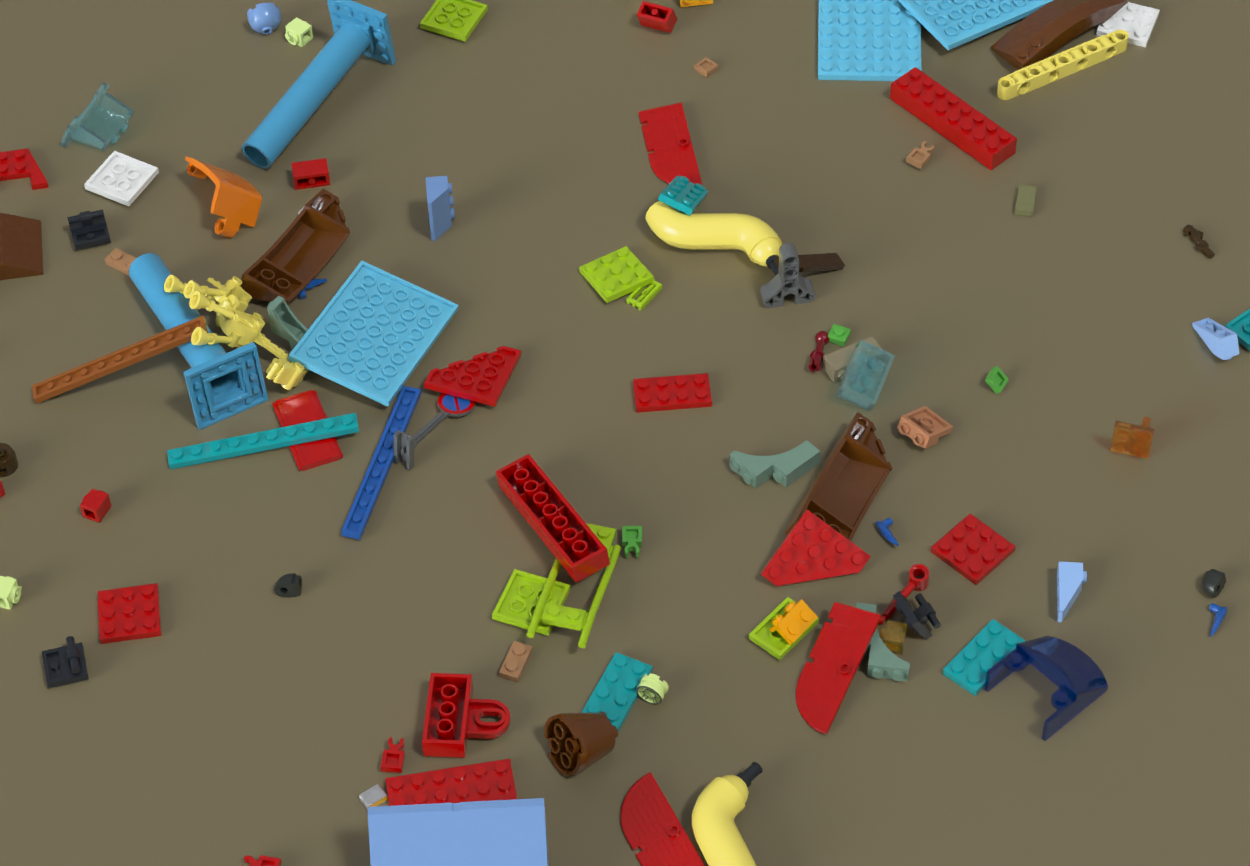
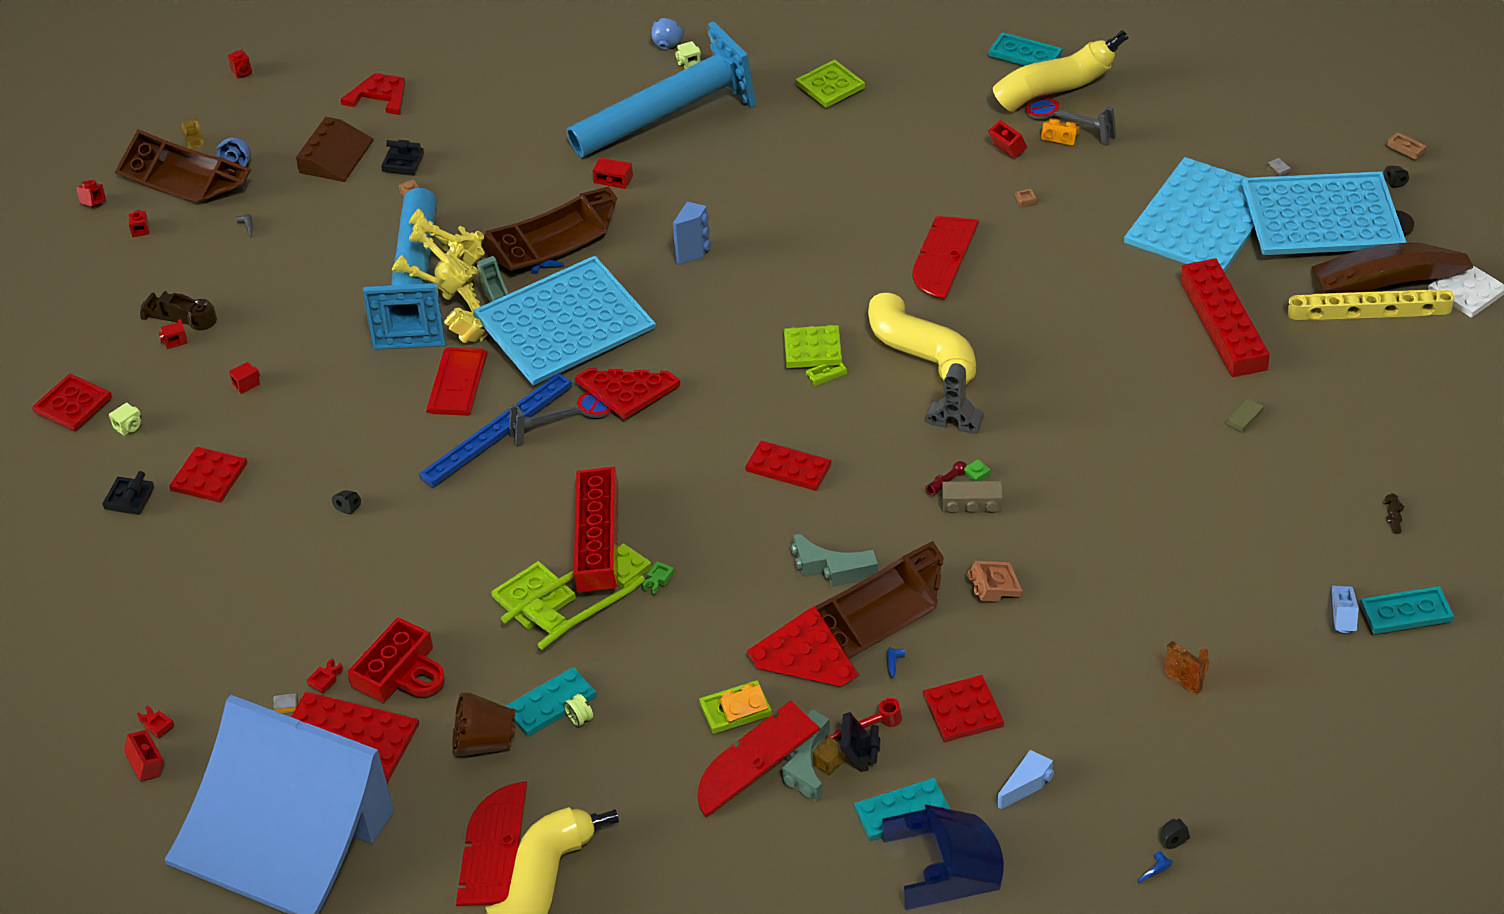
camera: 30 degrees right, 5 degrees down
(99, 122) = (471, 76): clear light blue windscreen -> none
(116, 360) = (337, 265): dark orange plate -> none
(121, 178) = (459, 126): white plate -> none
(233, 197) = (527, 167): orange panel -> none
(262, 441) = (413, 376): teal plate -> none
(515, 661) = (485, 640): medium nougat plate -> none
(683, 194) = (914, 296): teal plate -> none
(818, 262) = (996, 398): dark brown tile -> none
(865, 375) = (966, 512): clear light blue brick -> none
(920, 156) = (1168, 340): medium nougat plate -> none
(996, 379) = (1095, 564): bright green plate -> none

